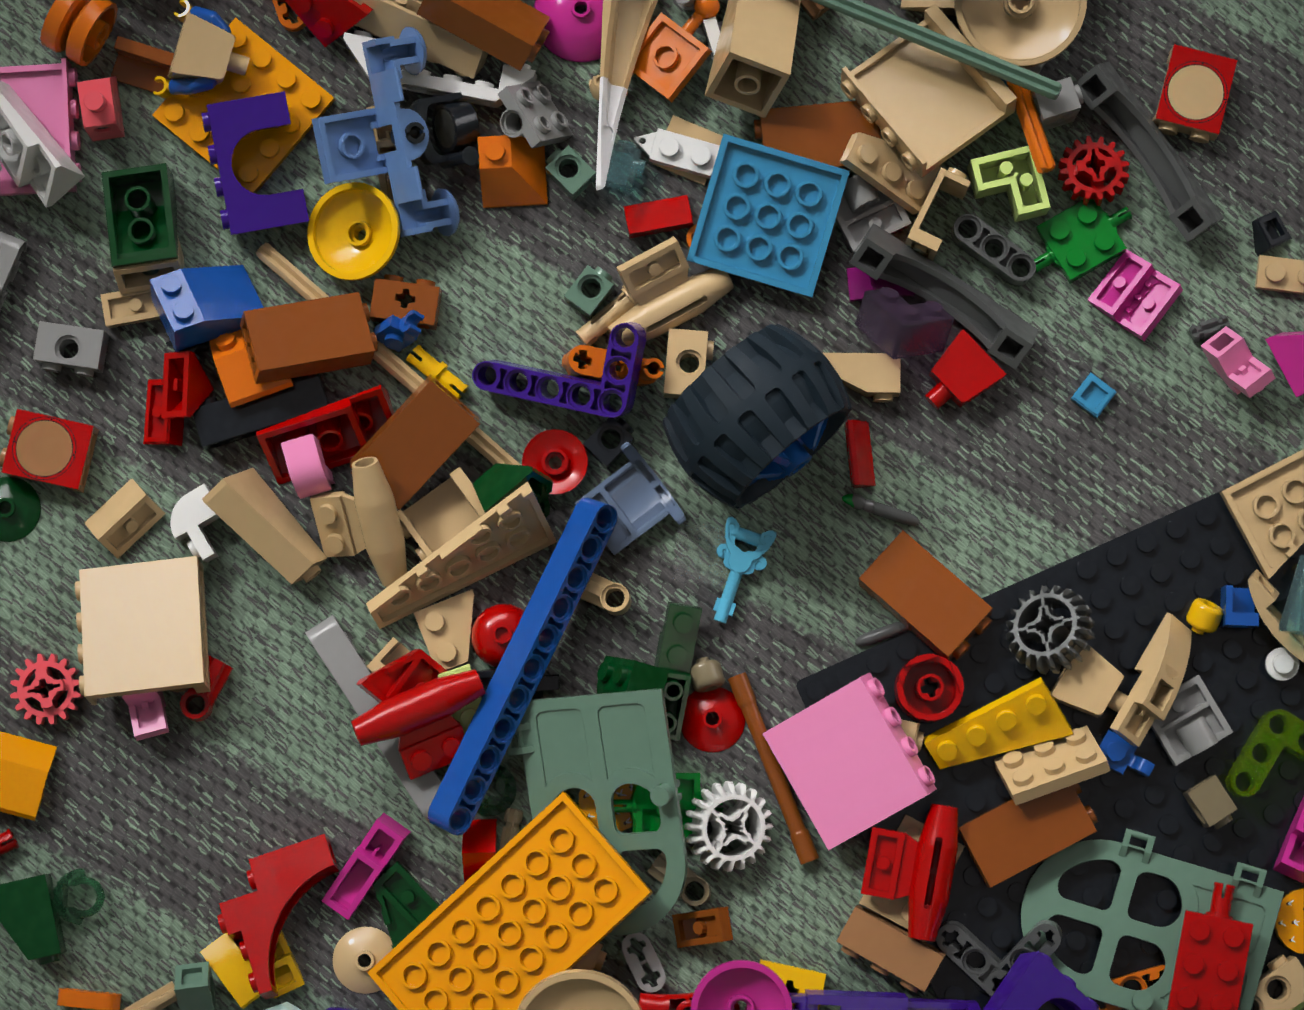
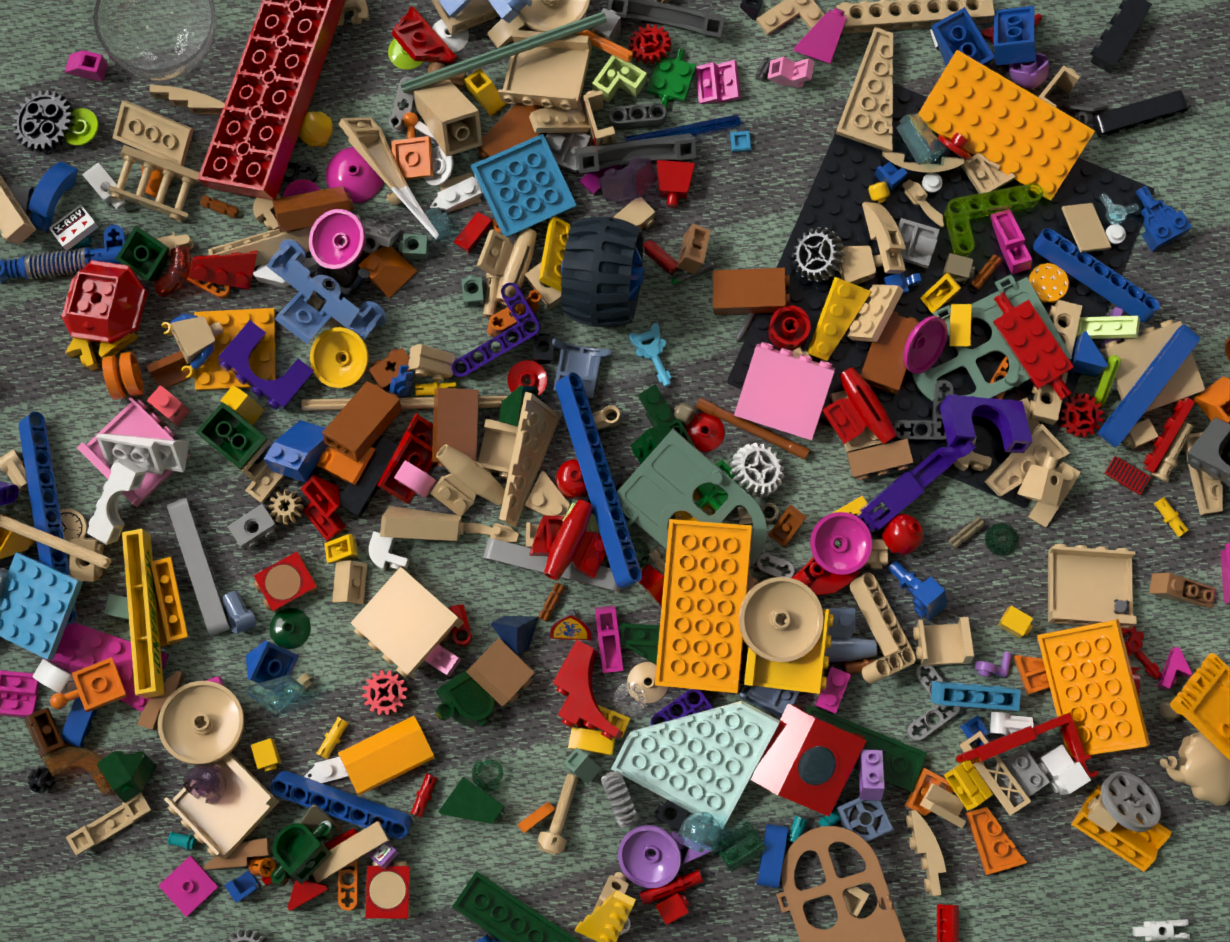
camera: 45 degrees left, 5 degrees down
(136, 368) = (294, 506): none -> tan gear
(136, 786) = (464, 701): none -> dark green piece
(150, 469) = (341, 549): none -> yellow slope
(190, 185) = (243, 404): none -> yellow slope
(199, 792) = (501, 673): none -> medium nougat brick
(264, 757) = (516, 631): none -> dark blue slope
(331, 811) = (570, 628): none -> shield
(338, 760) = (551, 602): none -> dark orange axle
(338, 958) = (635, 691): none -> clear gear
(352, 617) = (498, 532): none -> tan piece
(457, 336) = (431, 362): none -> tan brick
(464, 73) = (327, 239): none -> dark pink dish
(691, 101) = (441, 167): none -> white dish
(749, 316) = (554, 253): none -> yellow wing
(830, 50) = (484, 91): none -> yellow slope
(905, 482) = (693, 249): none -> medium nougat brick
(1047, 326) = (693, 129): none -> clear blue axle
(1071, 863) = (925, 344): none -> dark pink dish
(1143, 877) = (960, 324): none -> yellow slope
(1157, 813) = (941, 293): none -> yellow slope
(1243, 837) = (986, 272): none -> dark orange axle
(1248, 665) = (918, 197): none -> tan piece

